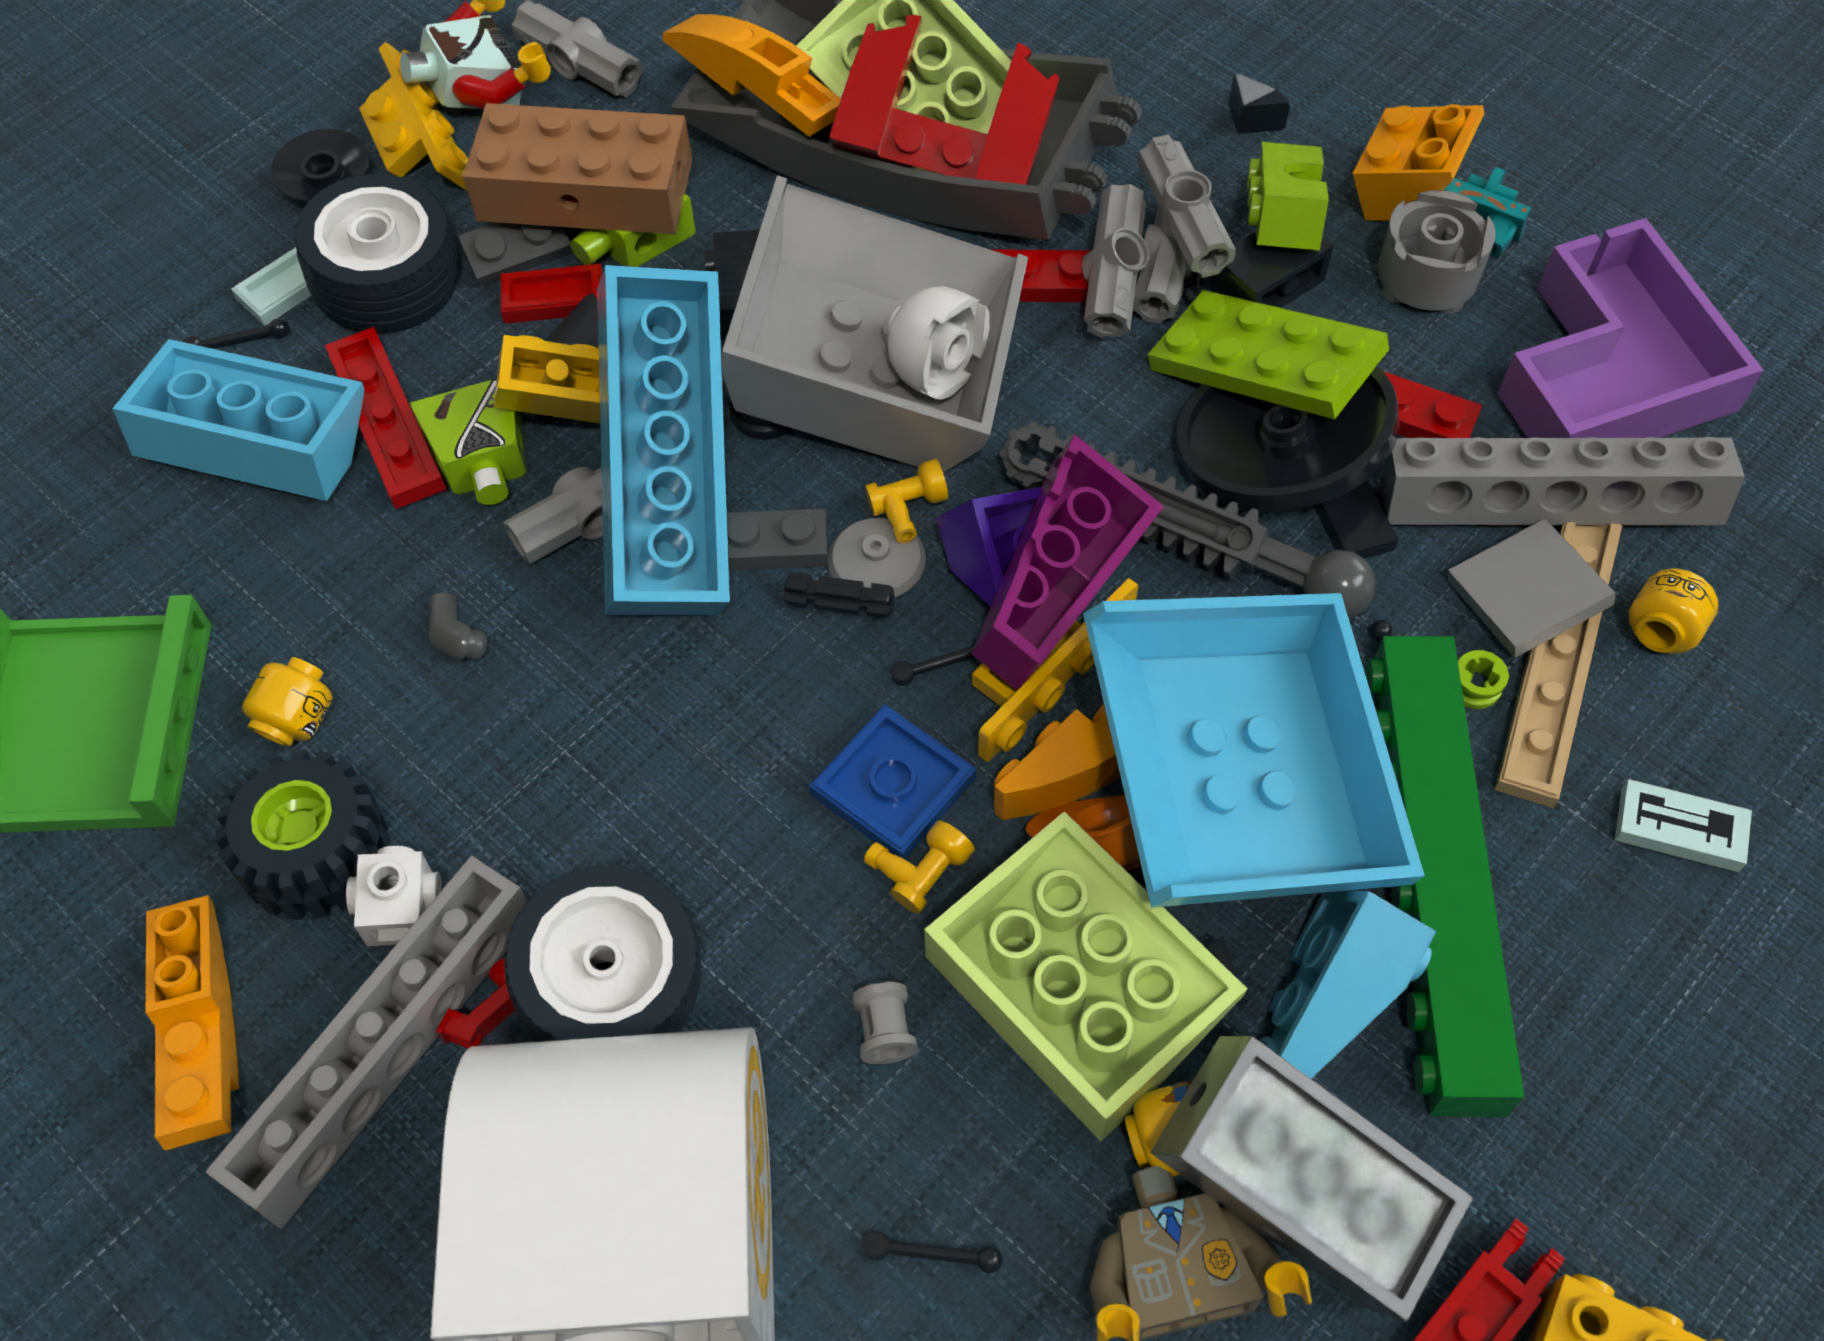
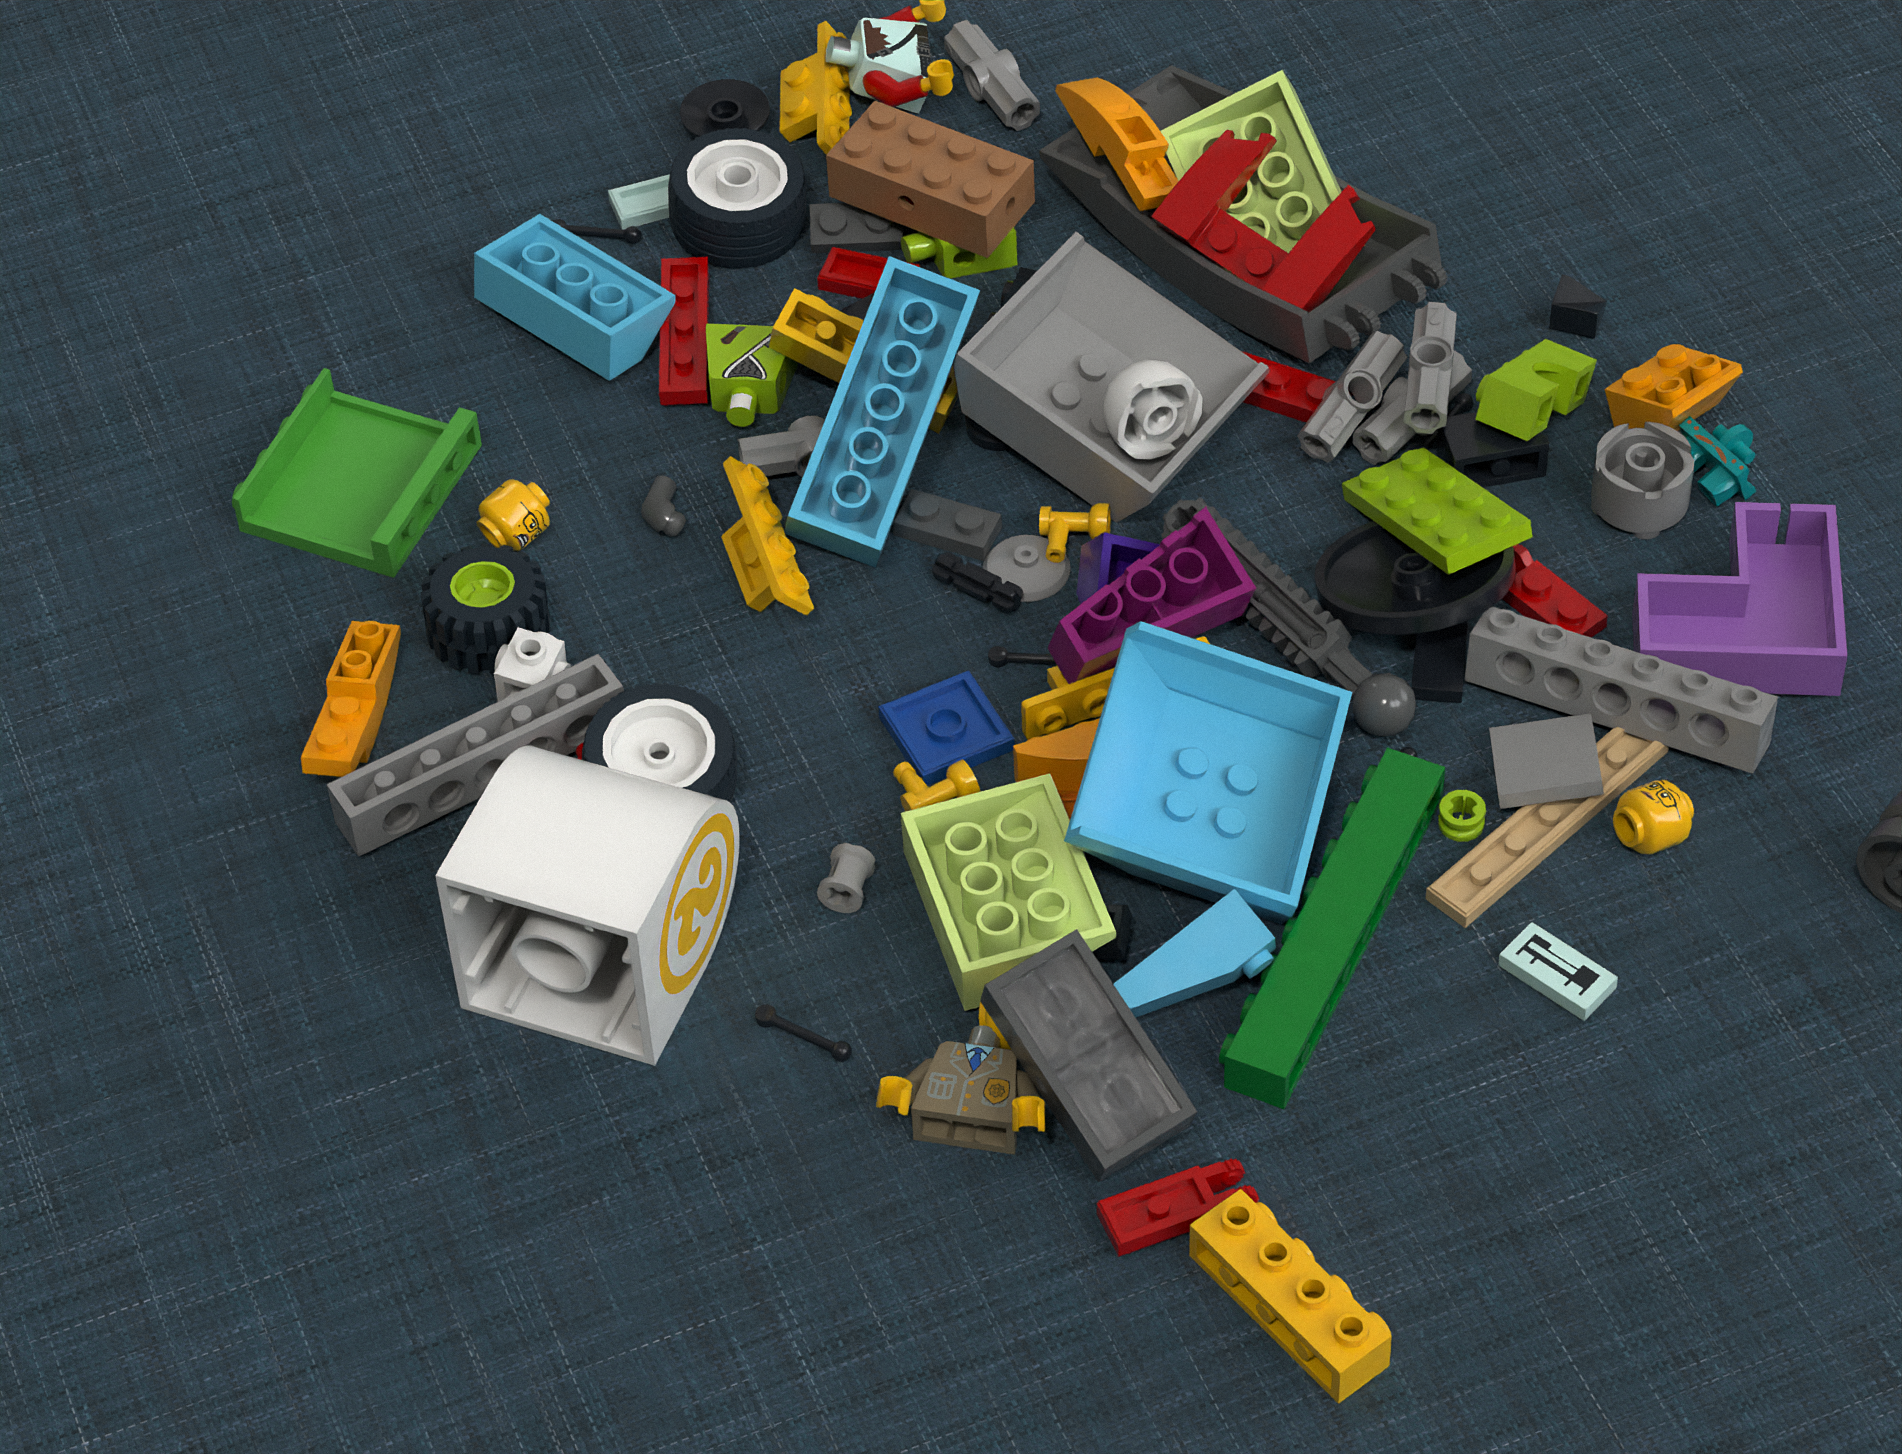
camera: 25 degrees right, 10 degrees down
(589, 644) = (759, 546): none -> yellow bracket

